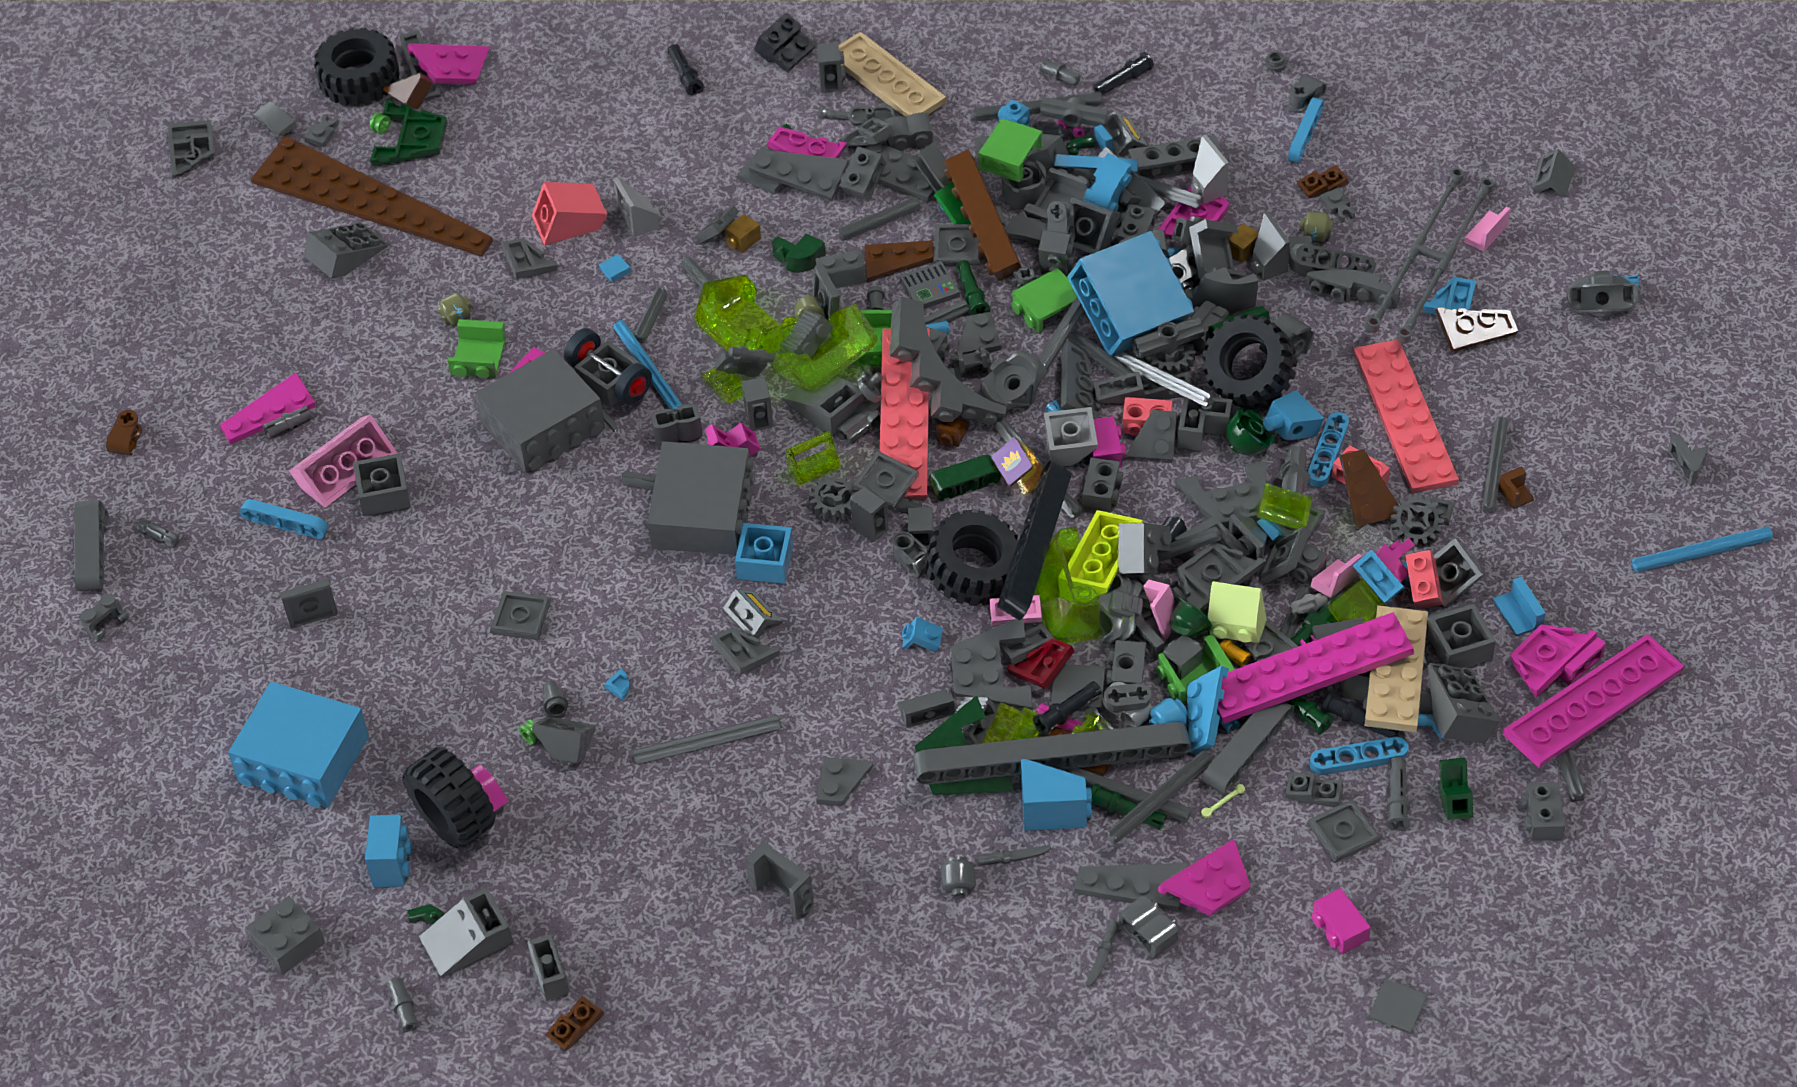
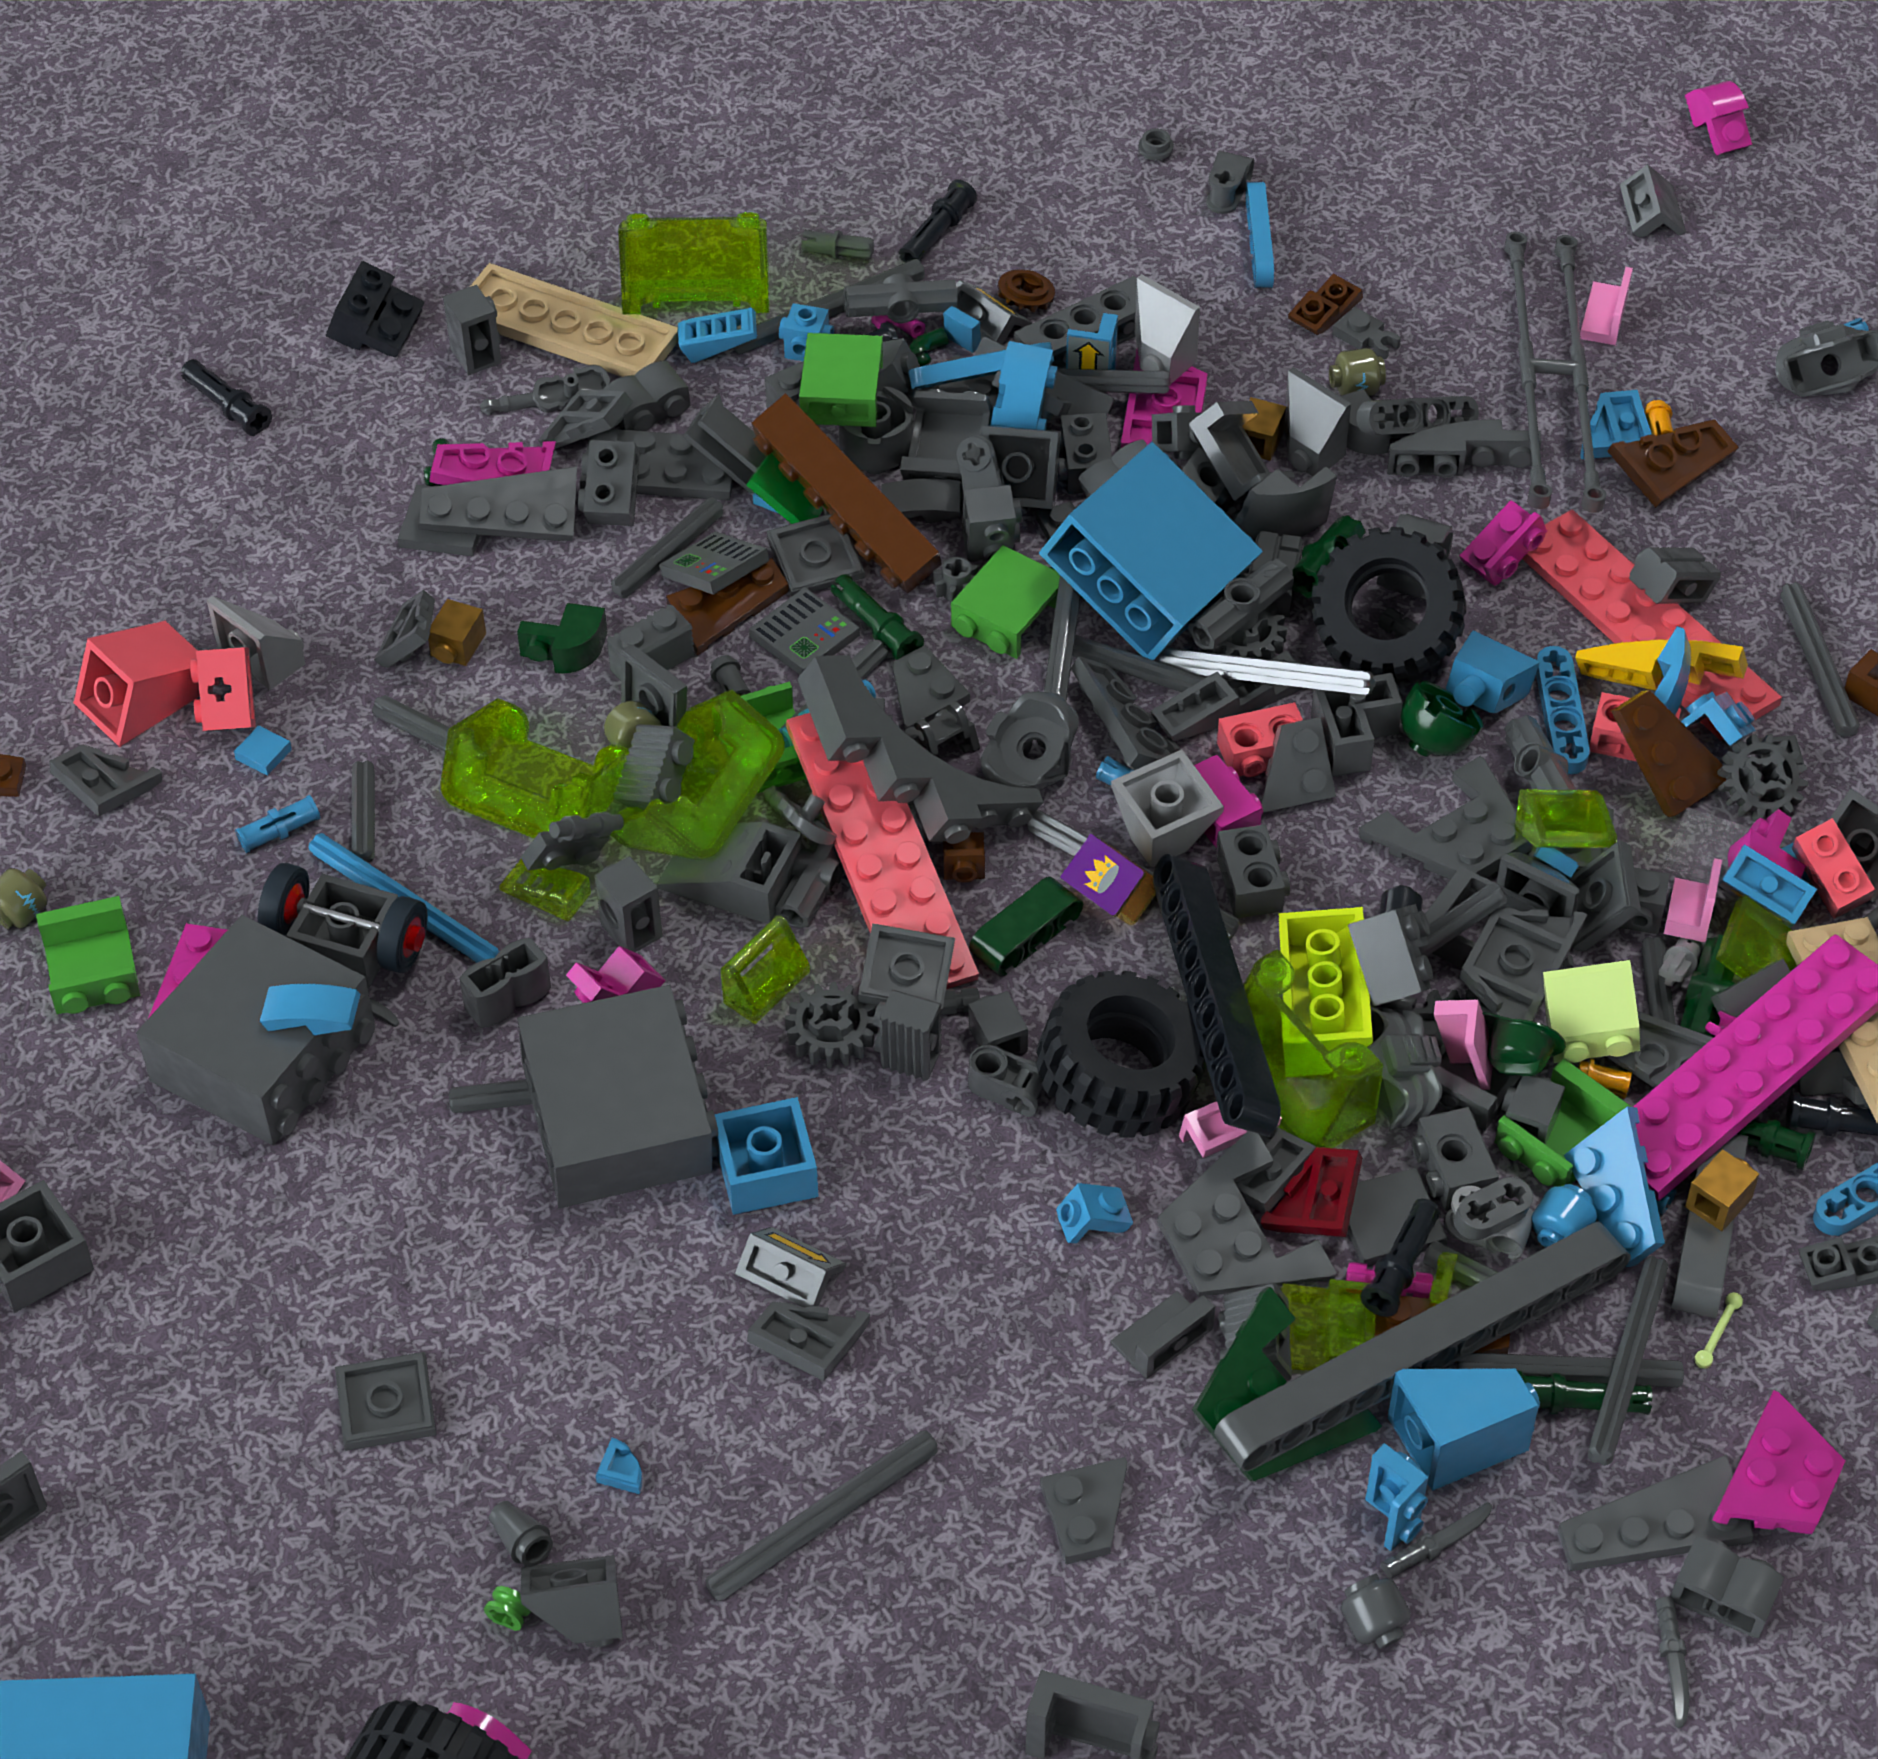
camera: 25 degrees left, 0 degrees up
(563, 404) = (315, 1005): none -> dark azure slope
(603, 309) = (277, 823): none -> dark azure pin
(614, 221) = (238, 706): none -> coral brick
(898, 233) = (714, 562): none -> dark grey tile
(963, 105) = (706, 335): none -> dark azure slope
(965, 60) = (694, 260): none -> clear neon green windscreen
(997, 825) = (1398, 1492): none -> dark azure bracket
(1160, 124) = (1035, 293): none -> reddish brown gear
(1168, 172) = (1092, 349): none -> panel
(1255, 726) = (1722, 1190): none -> pearl gold brick
(1345, 347) = (1504, 543): none -> dark pink bracket
(1385, 452) = (1675, 667): none -> dark azure slope
(1390, 436) = (1638, 665): none -> yellow slope
(1408, 478) = (1729, 718): none -> dark azure bracket
(1431, 392) = (1674, 575): none -> dark grey brick
(1481, 300) = (1658, 417): none -> light orange pin
(1624, 129) = (1721, 109): none -> dark pink brick

